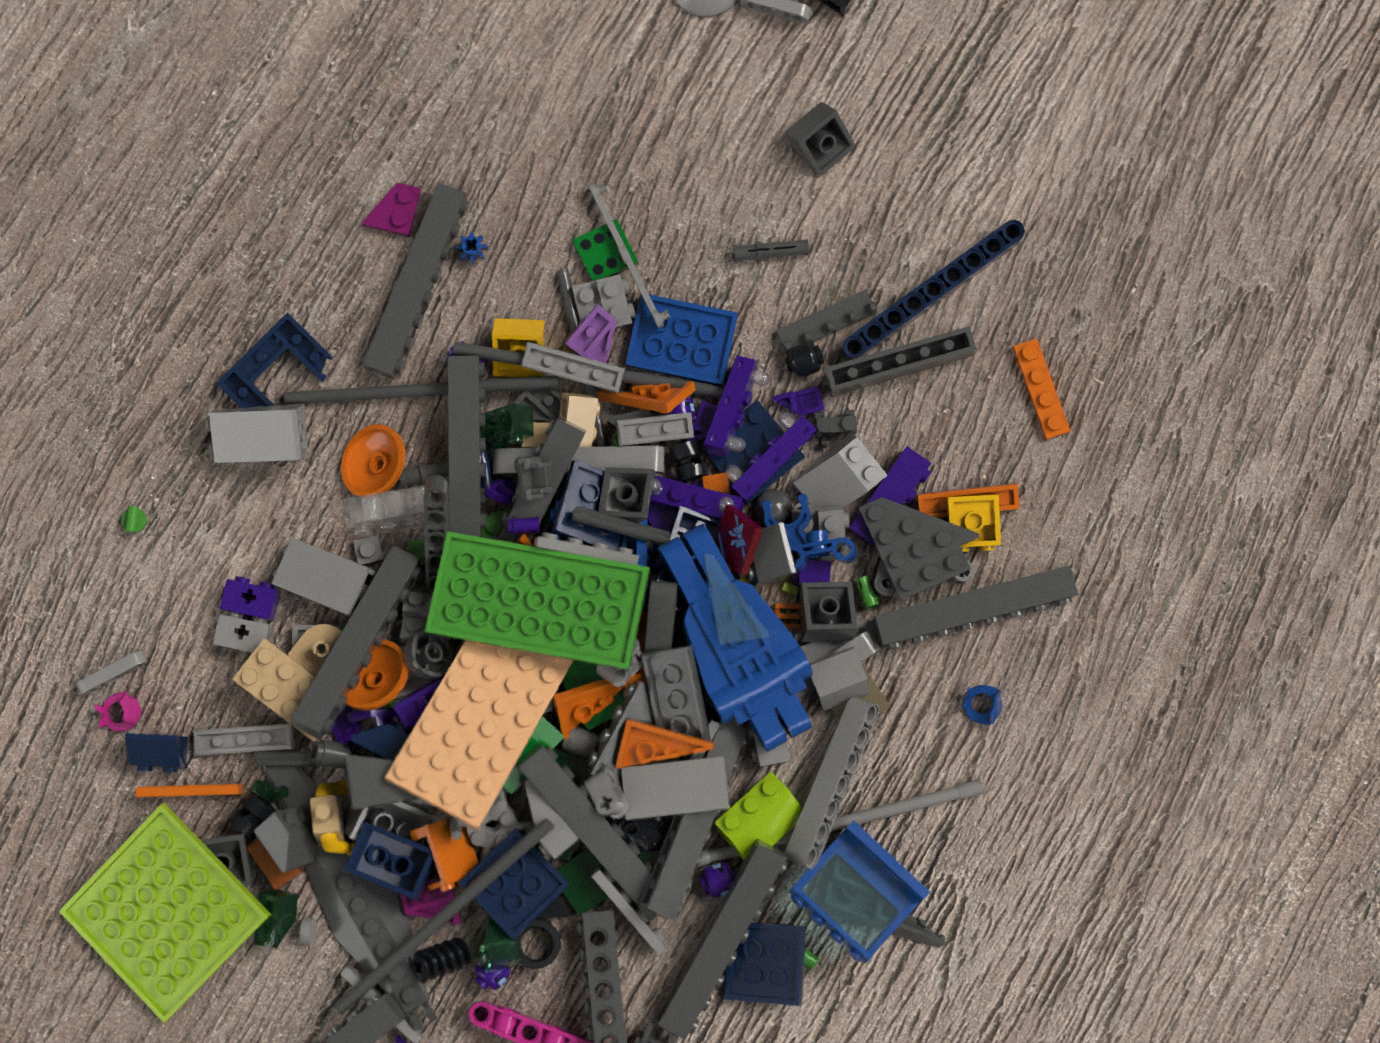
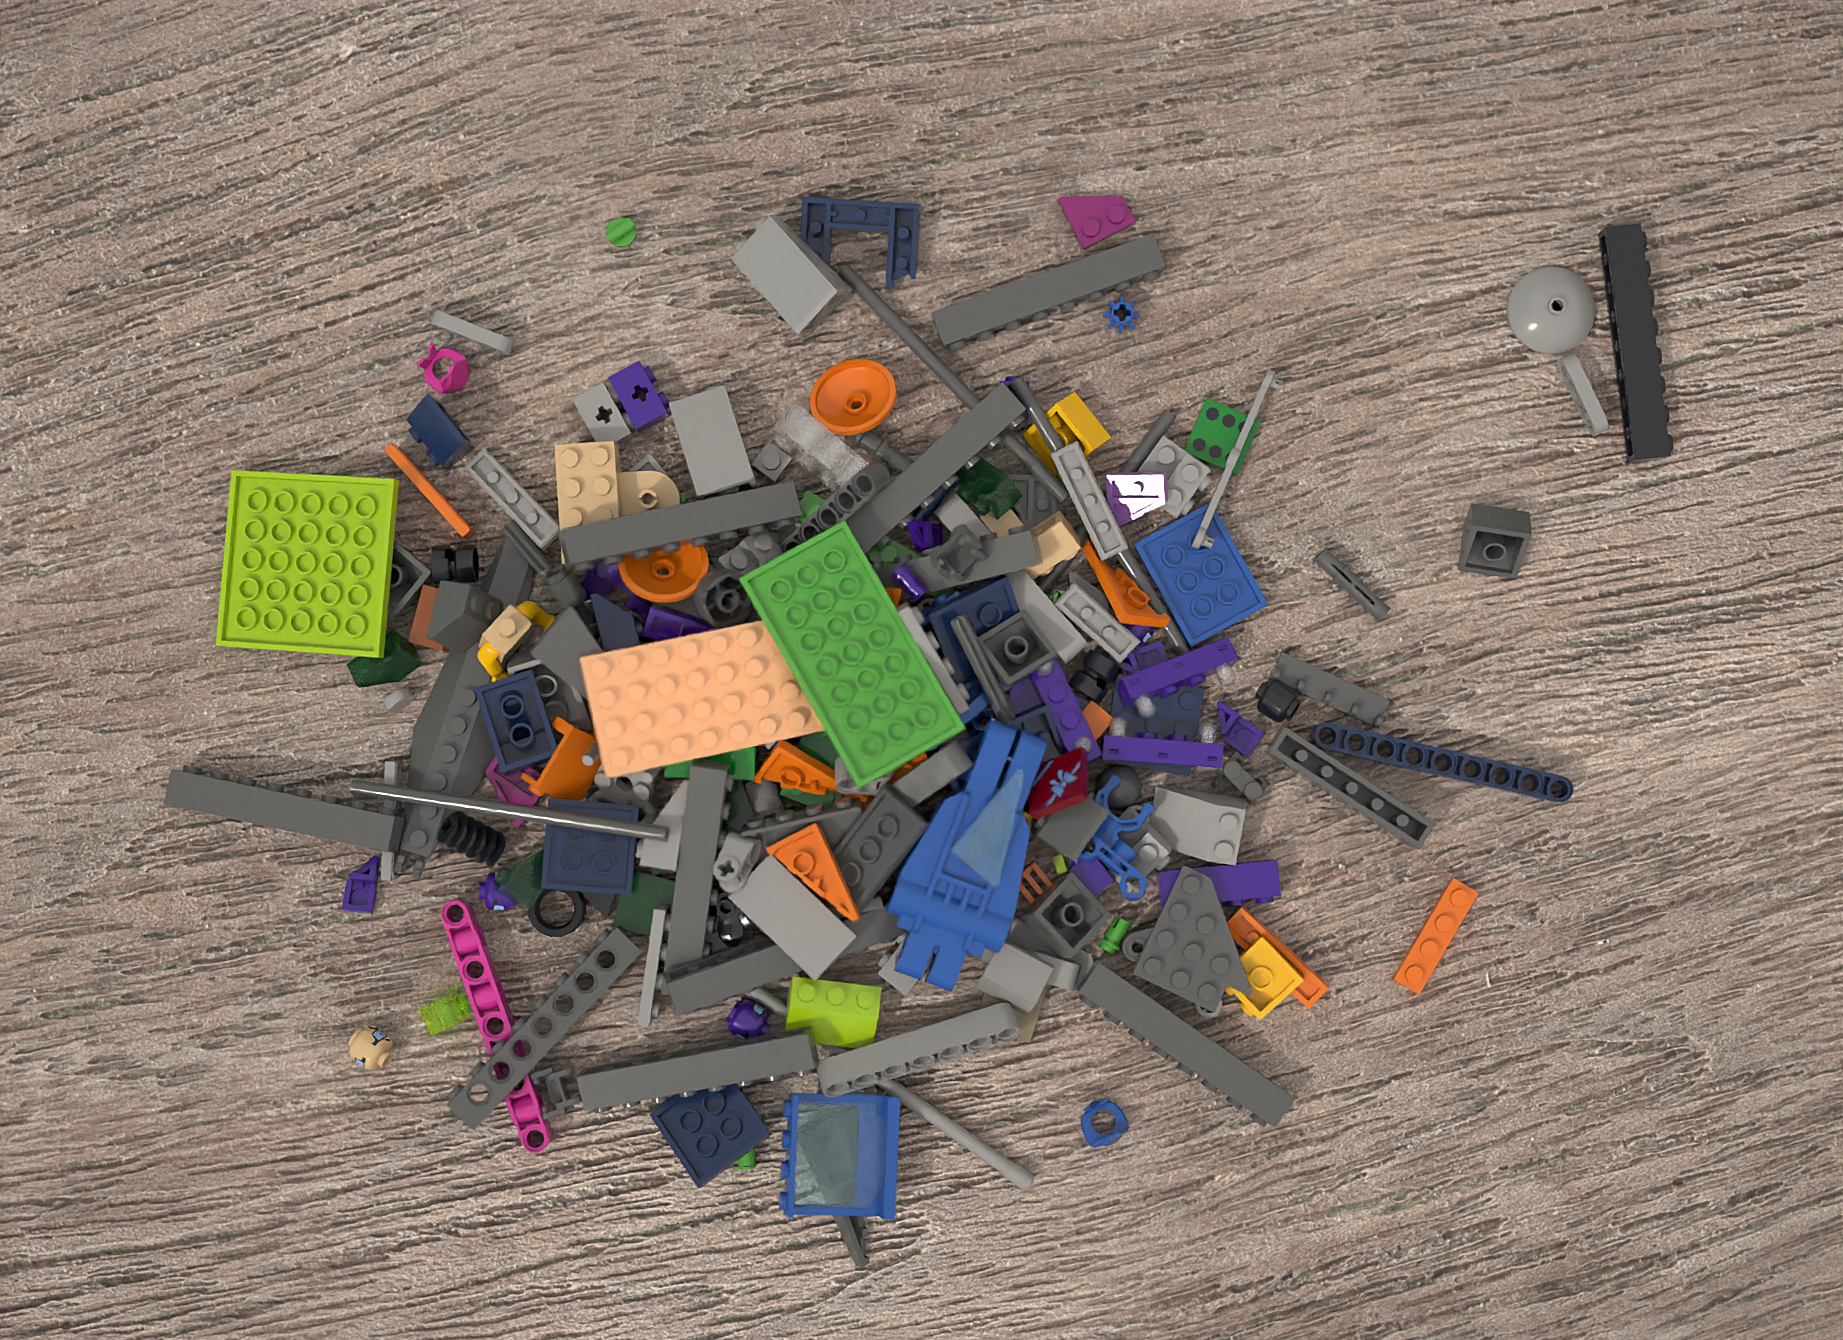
camera: 50 degrees right, 5 degrees up
(269, 792) = (488, 561): clear green arm -> none

